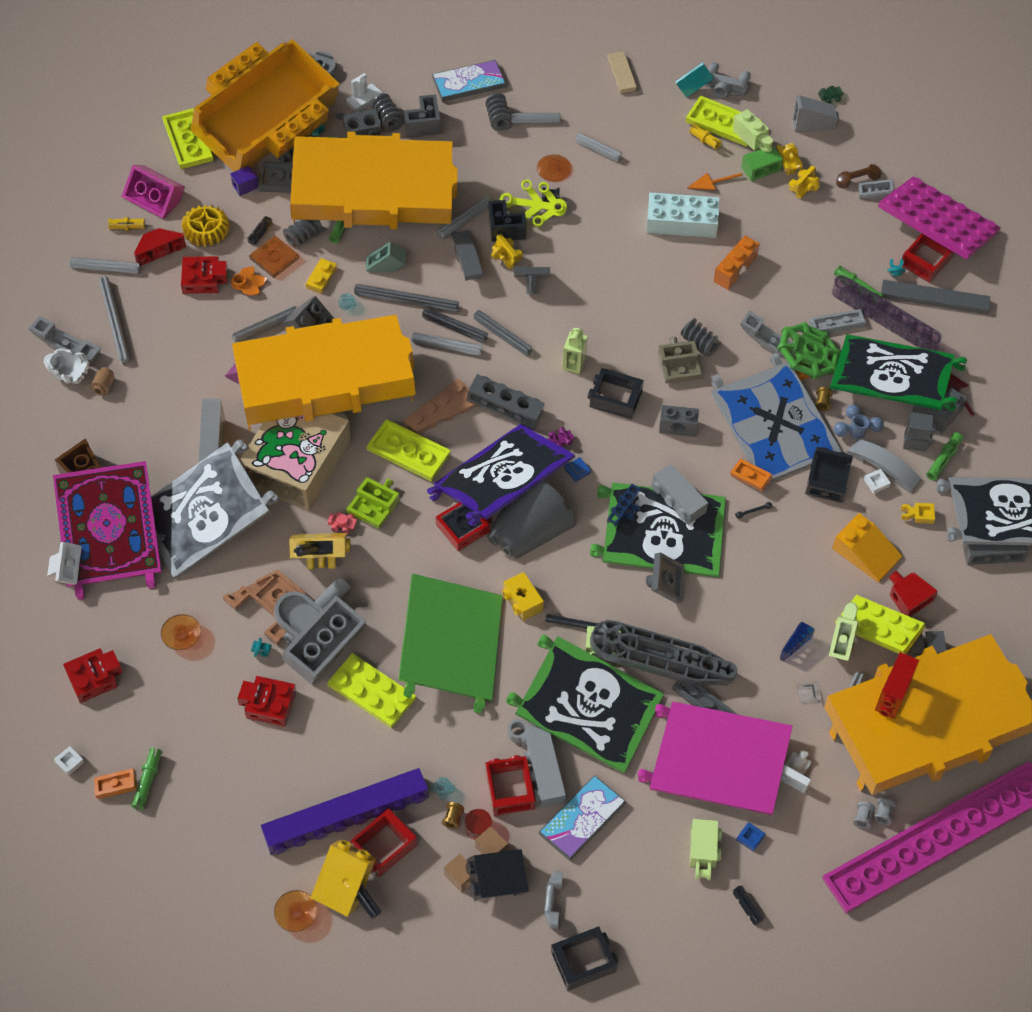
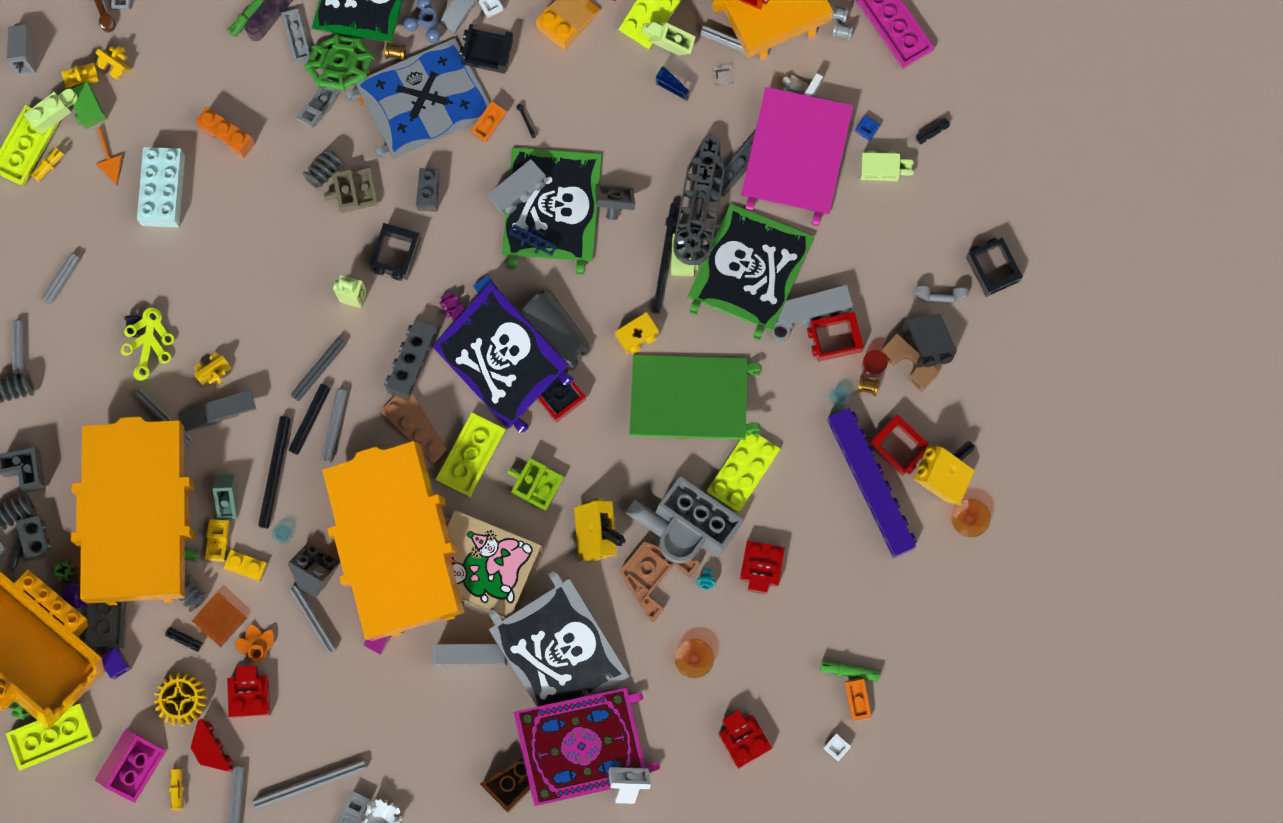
camera: 90 degrees left, 20 degrees up
(102, 381) = (395, 782): medium nougat brick -> none
(341, 520) = (558, 510): coral piece -> none
(347, 256) = (217, 540): none -> yellow slope
(508, 224) = (179, 374): black brick -> none
(531, 275) = (245, 340): dark grey tile -> none
(554, 168) = (93, 333): clear orange dish -> none
(582, 818) = (860, 273): tile -> none

